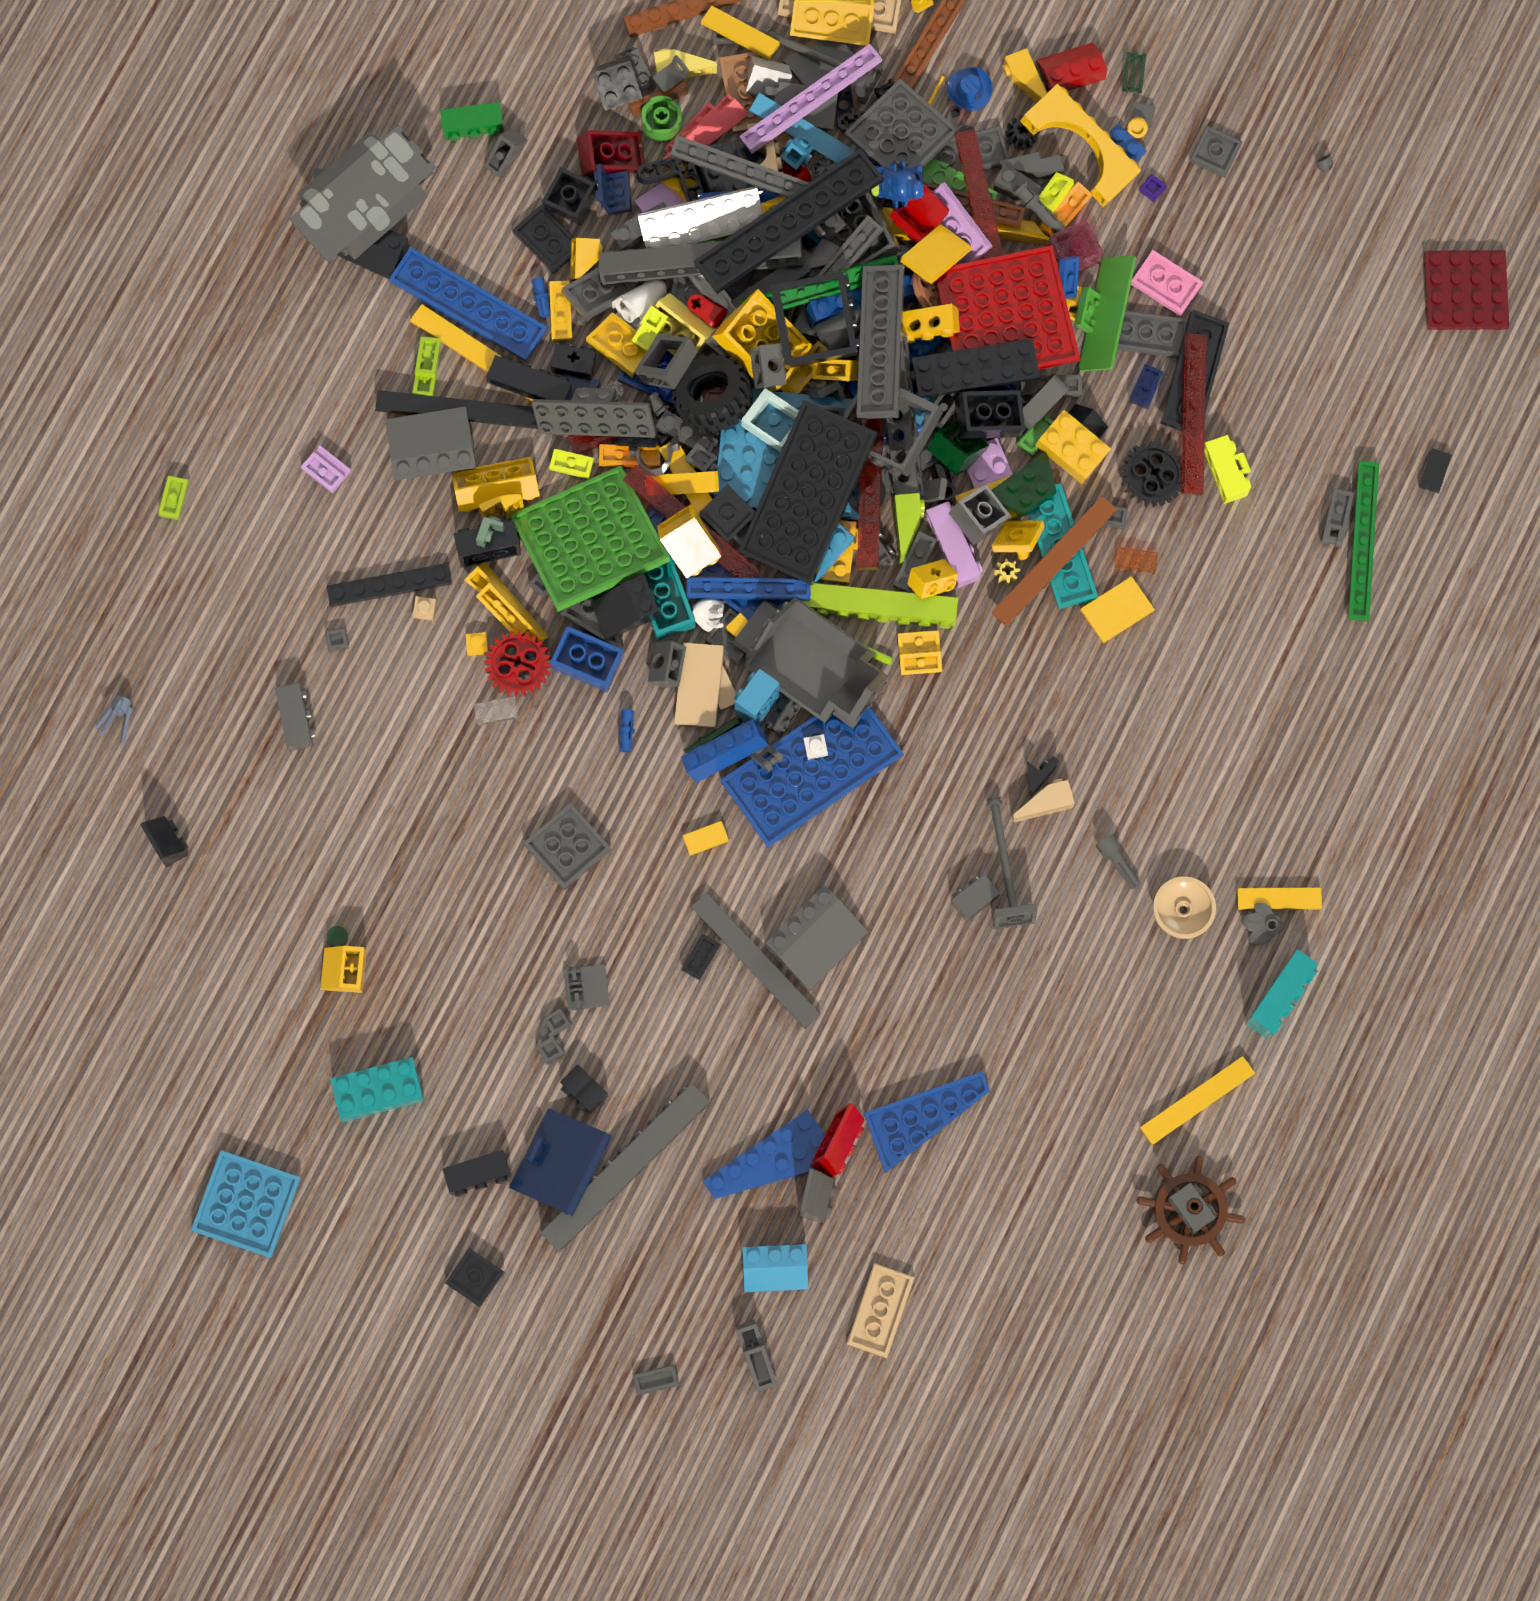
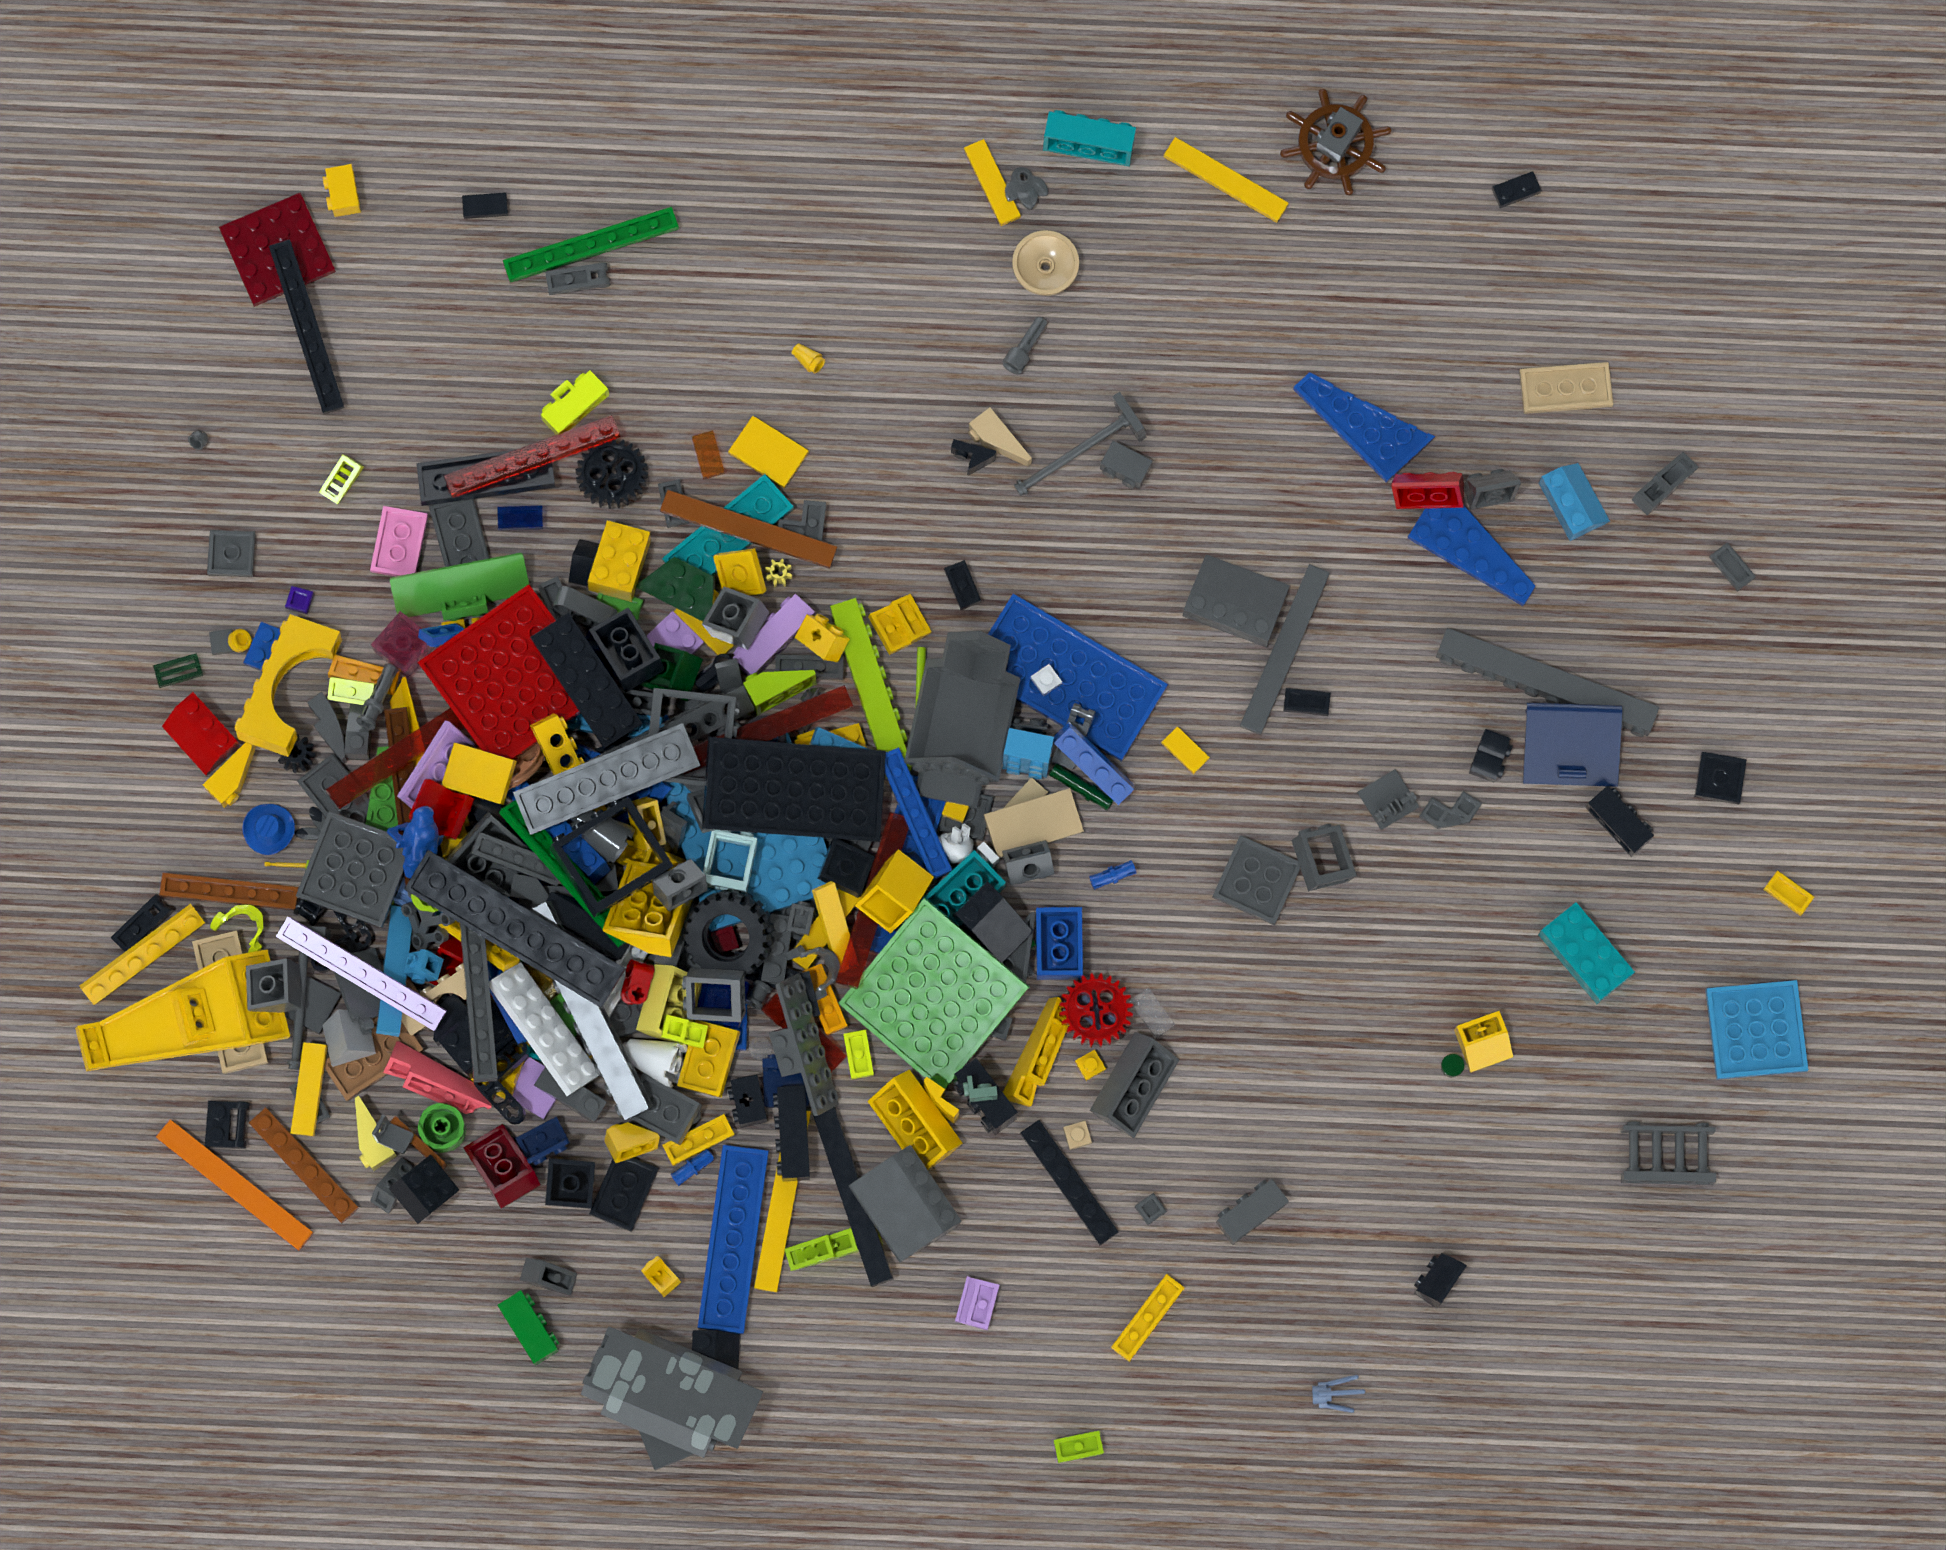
camera: 115 degrees left, 0 degrees up
(166, 1061) = (1656, 1174): none -> dark grey fence
(250, 598) = (1147, 1317): none -> yellow tile
(349, 1290) = (1788, 893): none -> yellow tile
(443, 670) = (1134, 1084): none -> dark grey slope
(464, 236) = (660, 1276): none -> yellow bracket
(584, 899) = (1307, 864): none -> dark grey window
(689, 635) = (987, 854): none -> white plate
(833, 34) = (273, 986): none -> dark grey slope
(911, 23) = (252, 912): none -> neon yellow helmet
(930, 717) = (962, 585): none -> black plate
(1039, 618) = (812, 520): none -> dark grey plate
(1080, 1352) = (1516, 189): none -> black plate
(1183, 677) = (810, 359): none -> yellow cone
(1250, 271) = (347, 483): none -> neon yellow slope
(1386, 282) = (306, 327): none -> black plate
(1496, 359) = (342, 190): none -> yellow brick

